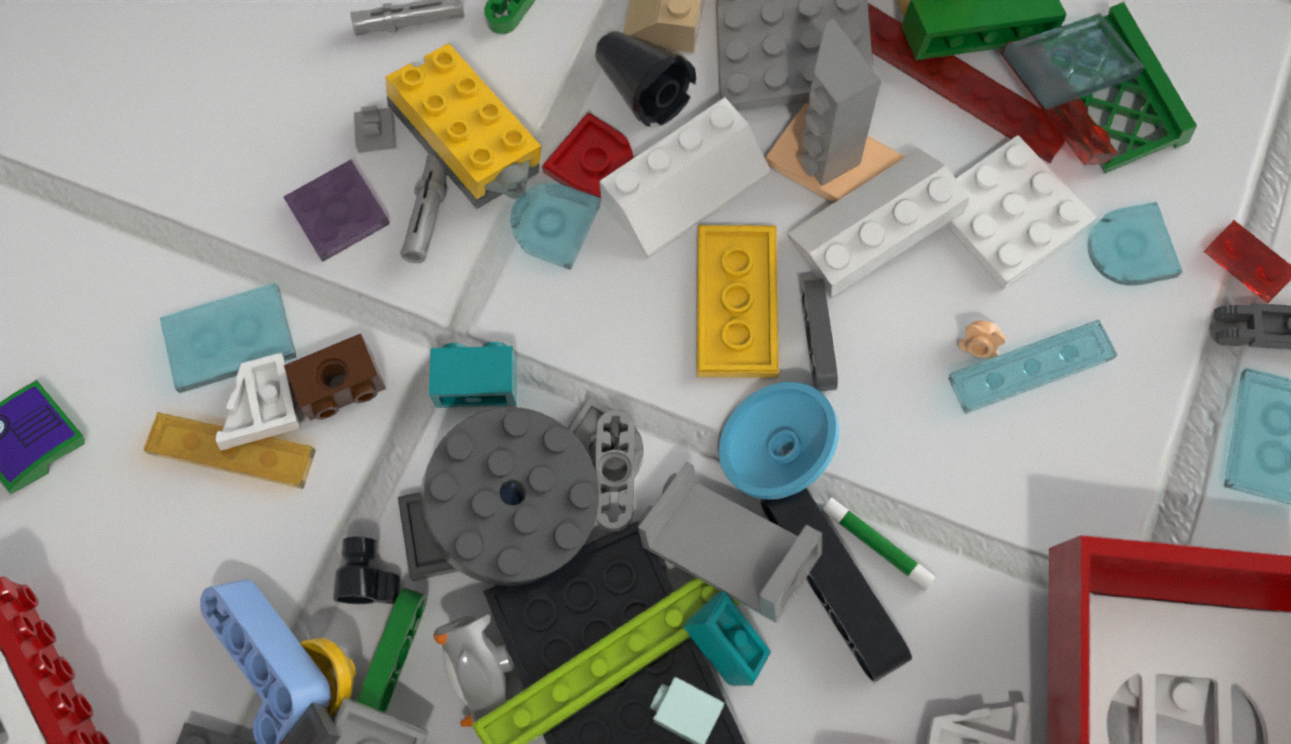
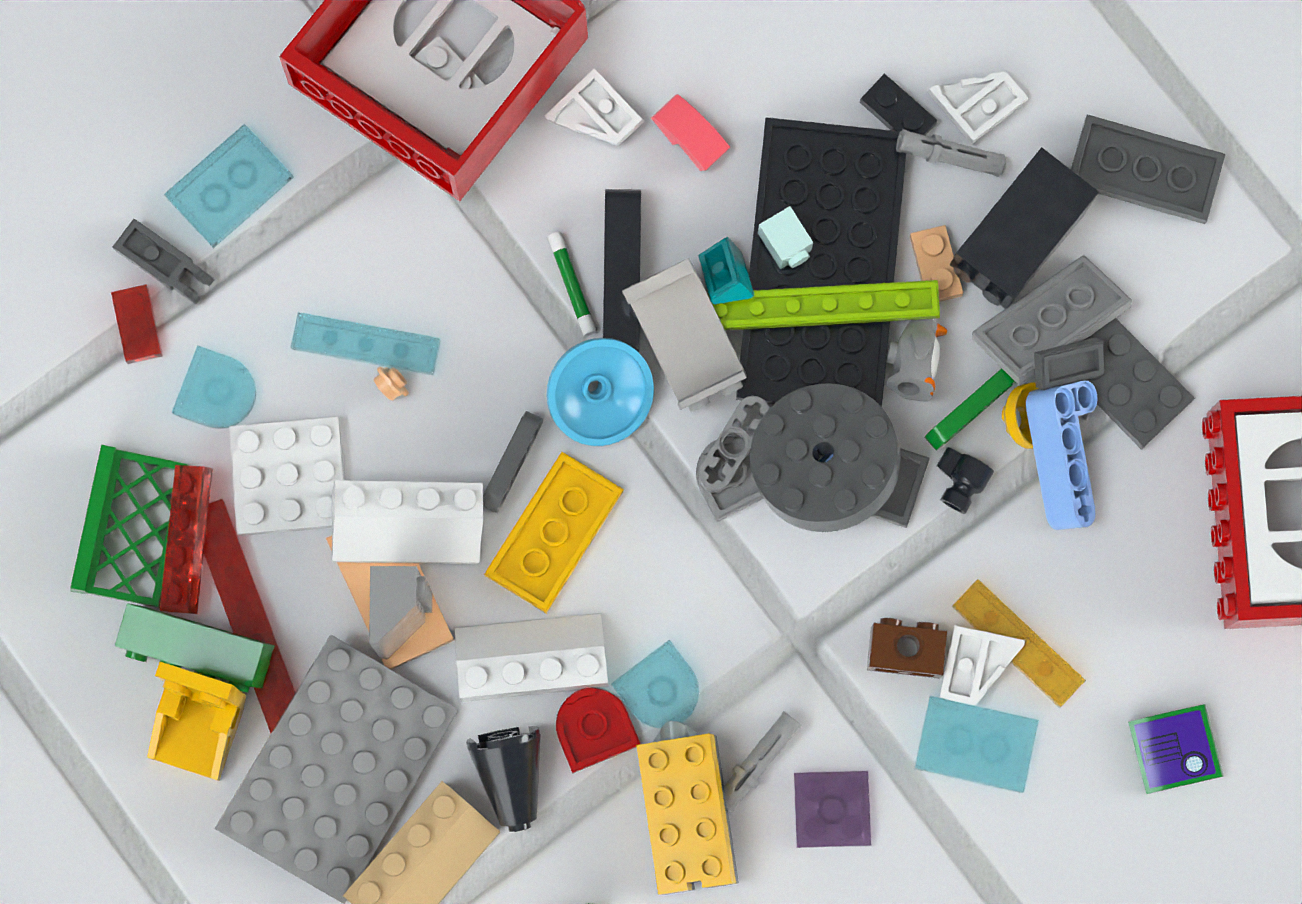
camera: 155 degrees left, 10 degrees up
(374, 129) = (761, 869): light grey tile -> none
(473, 375) = (797, 587): teal brick -> none
(1073, 60) = (153, 559): clear light blue tile -> none

